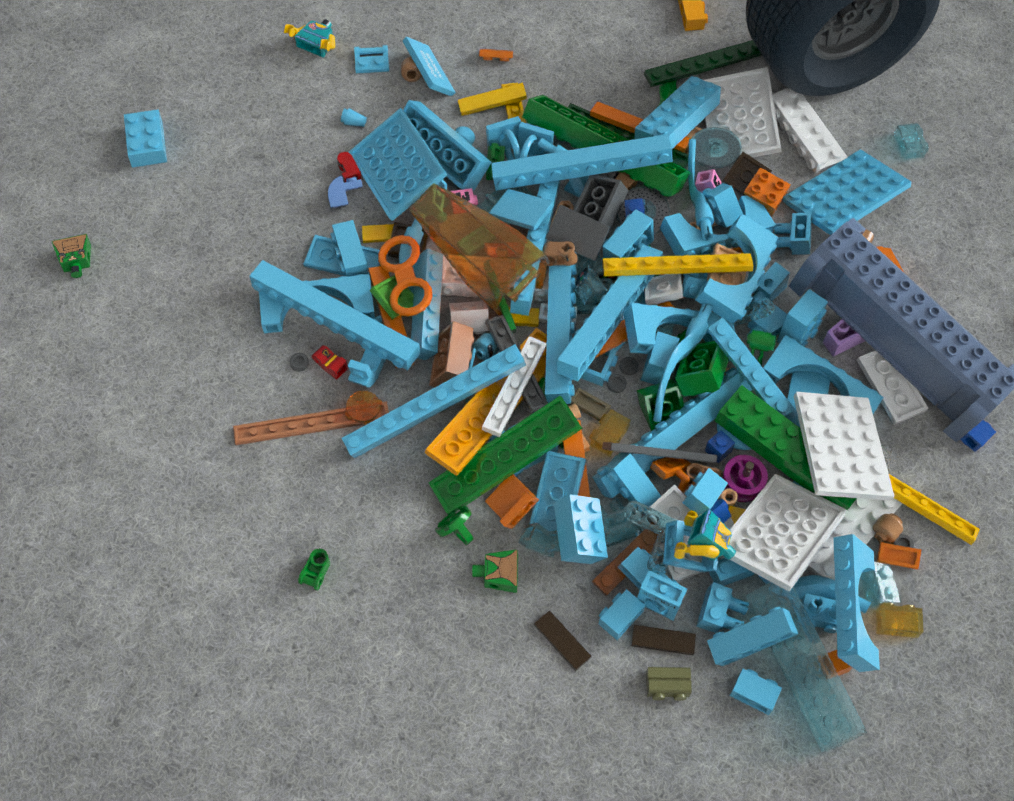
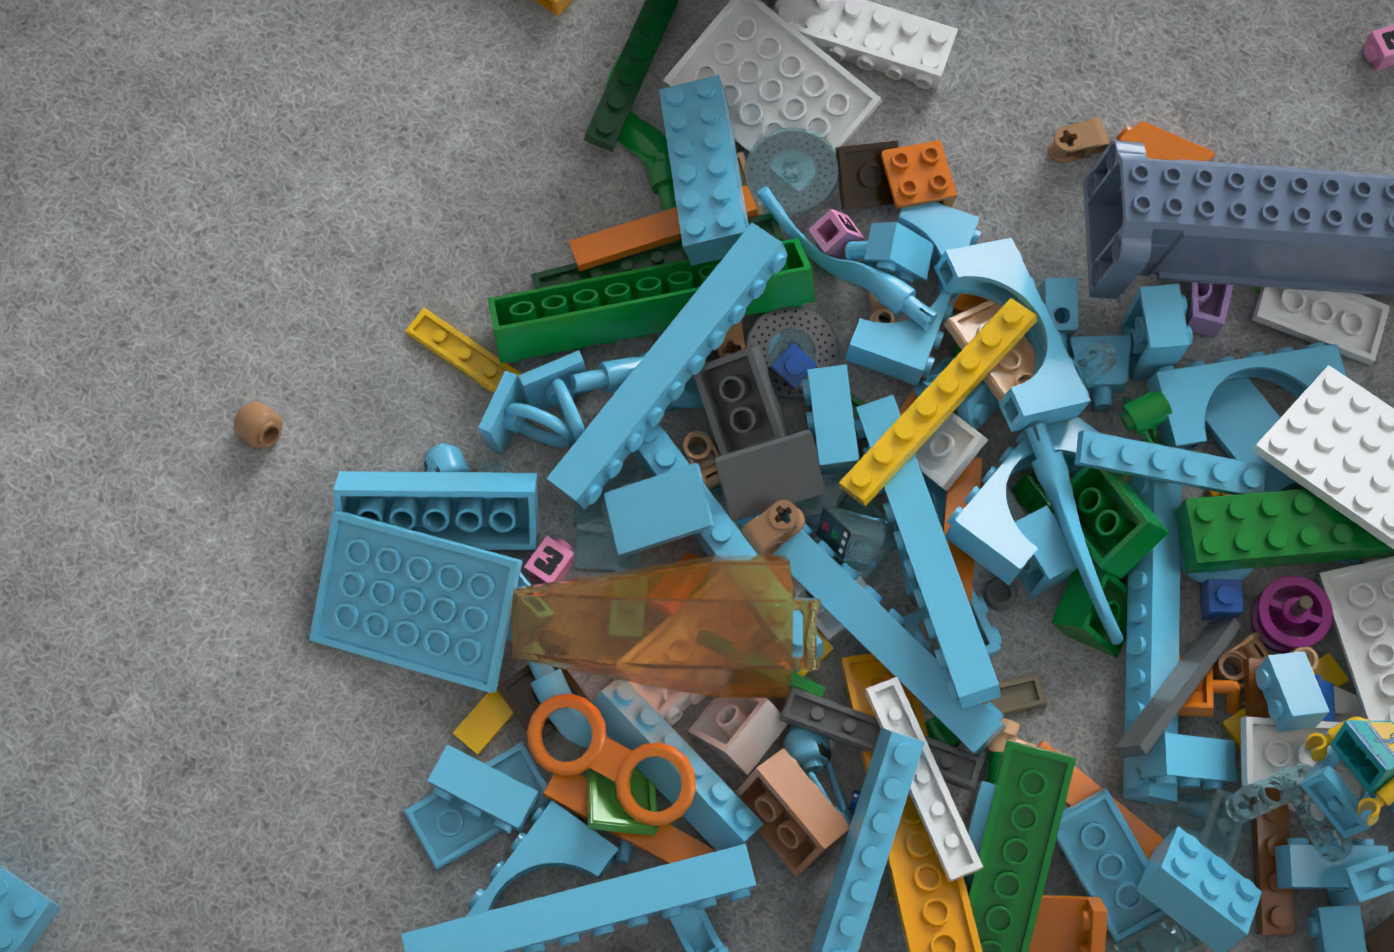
camera: 45 degrees left, 10 degrees up
(313, 37) = (60, 504): torso -> none
(337, 191) = (367, 713): medium blue brick -> none
(348, 165) = (333, 660): red leg -> none
(351, 117) = (257, 580): medium azure cone -> none
(371, 63) = (186, 467): medium azure plate -> none
(428, 66) = (281, 399): medium azure tile -> none
(492, 99) = (420, 367): yellow tile -> none
(494, 154) = (527, 458): green hinge -> none
(503, 55) = (355, 283): orange plate -> none
(612, 430) = (1078, 713): clear yellow brick -> none
(616, 383) = (1012, 632): dark grey tile -> none
(800, 233) = (1019, 201): medium azure brick -> none
(847, 191) = (1010, 84): medium azure plate -> none

